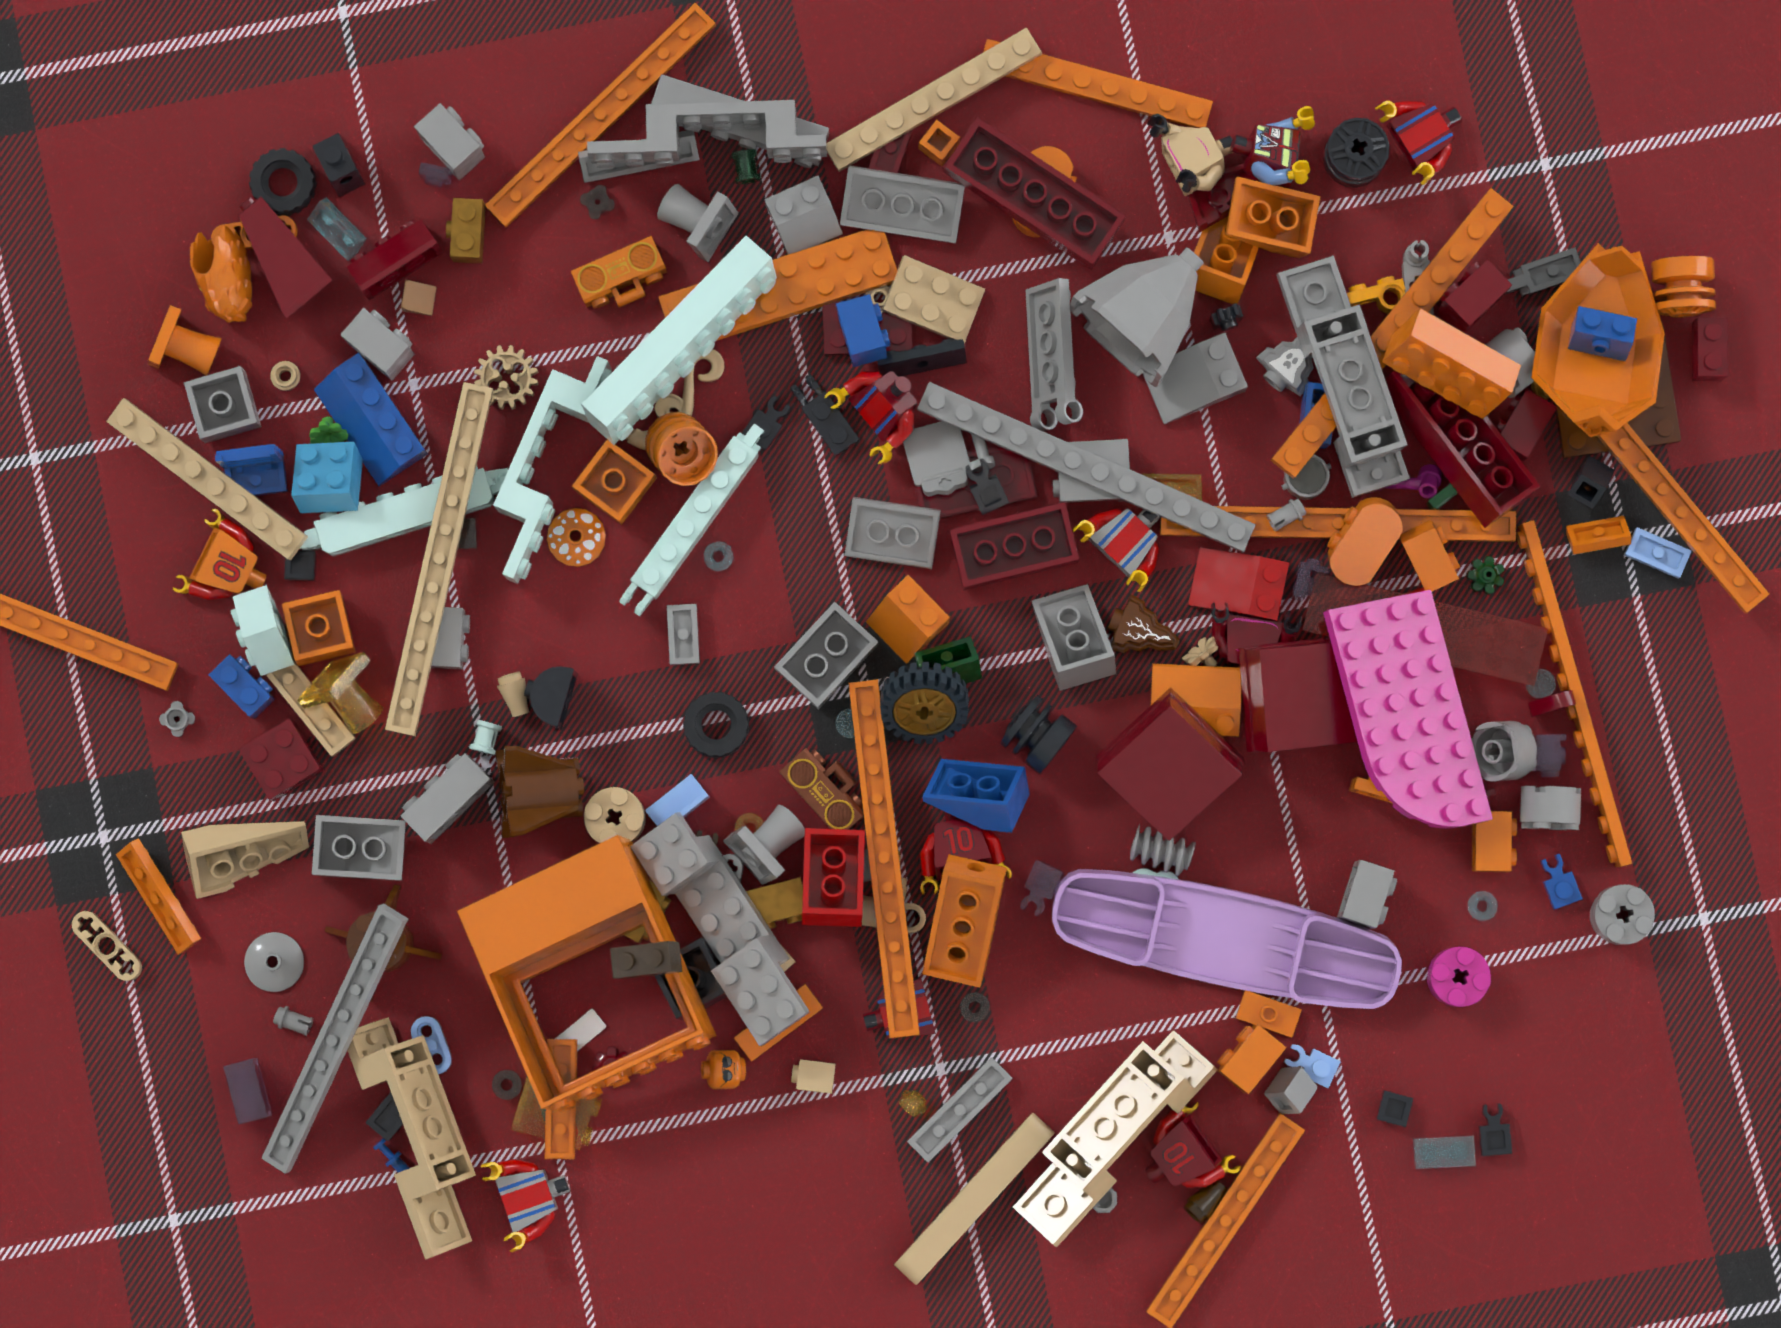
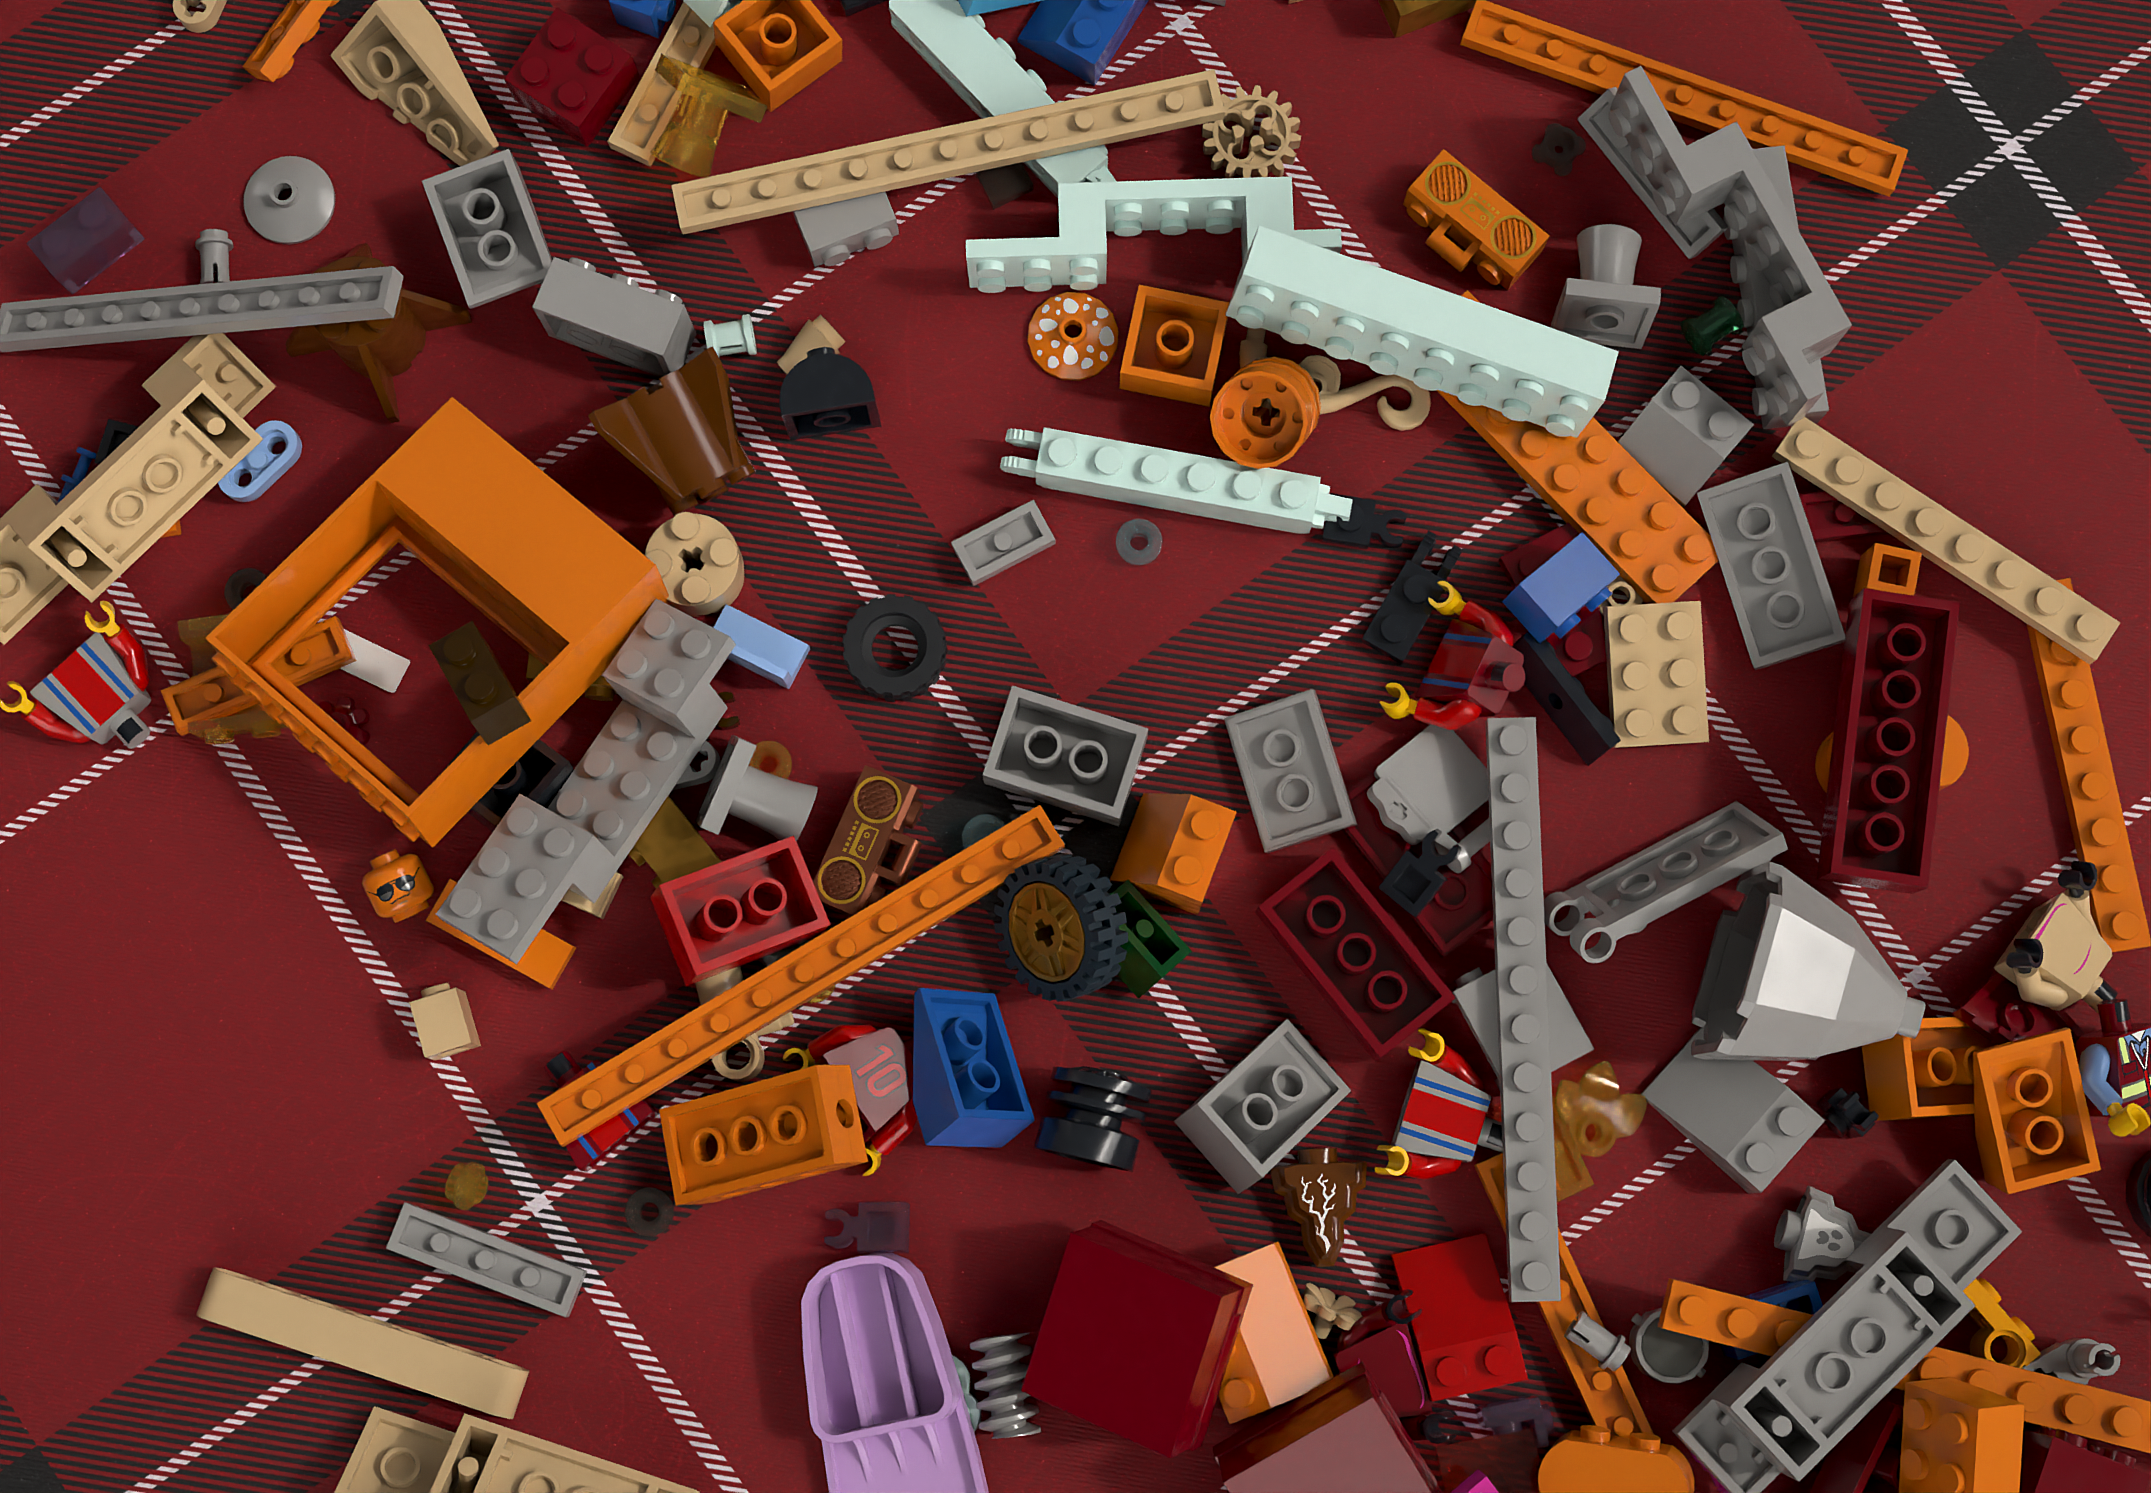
camera: 65 degrees right, 5 degrees down
(1158, 449) = (1598, 1103): none -> clear yellow plate

